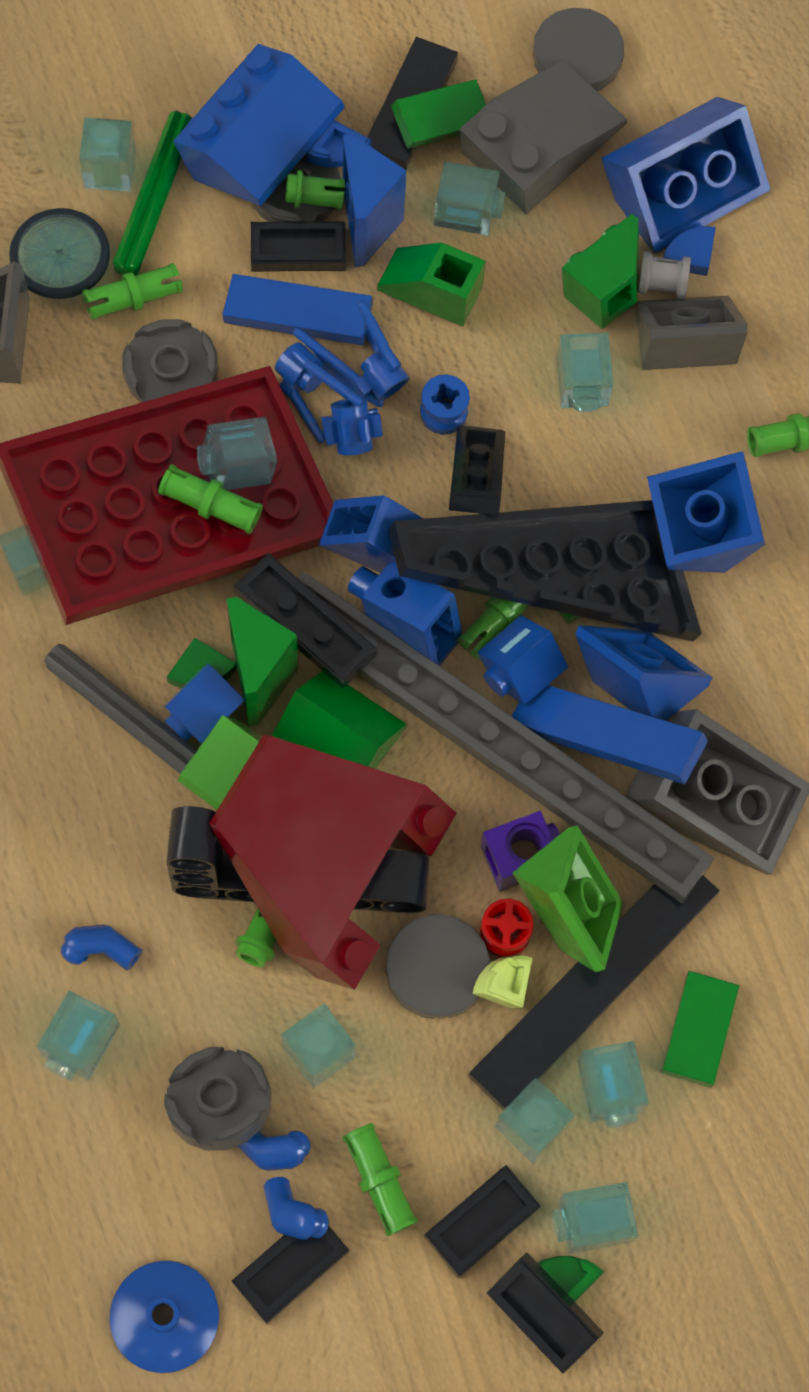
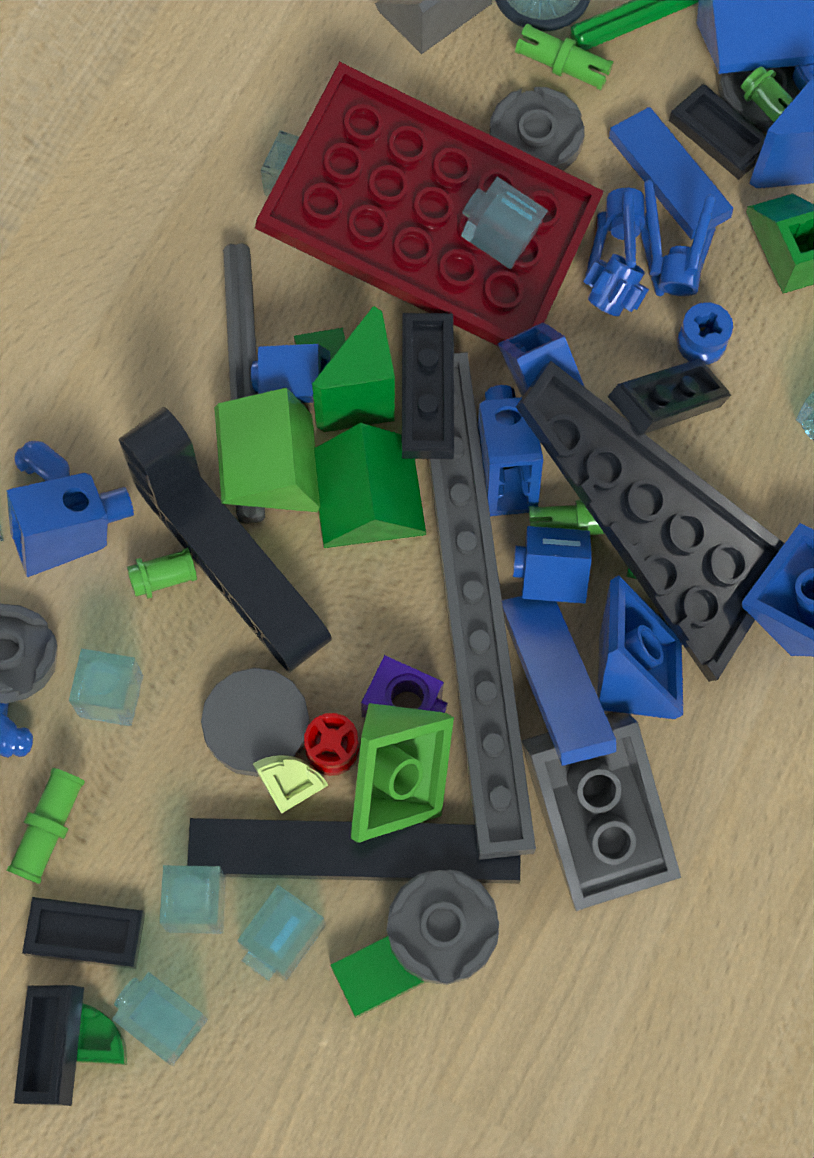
camera: 50 degrees right, 0 degrees up
(159, 966) = (62, 520): none -> blue torso
(210, 499) = (448, 234): bright green pin -> none
(311, 838) = (250, 528): dark red wedge -> none
(707, 969) = (443, 926): none -> dark grey tile

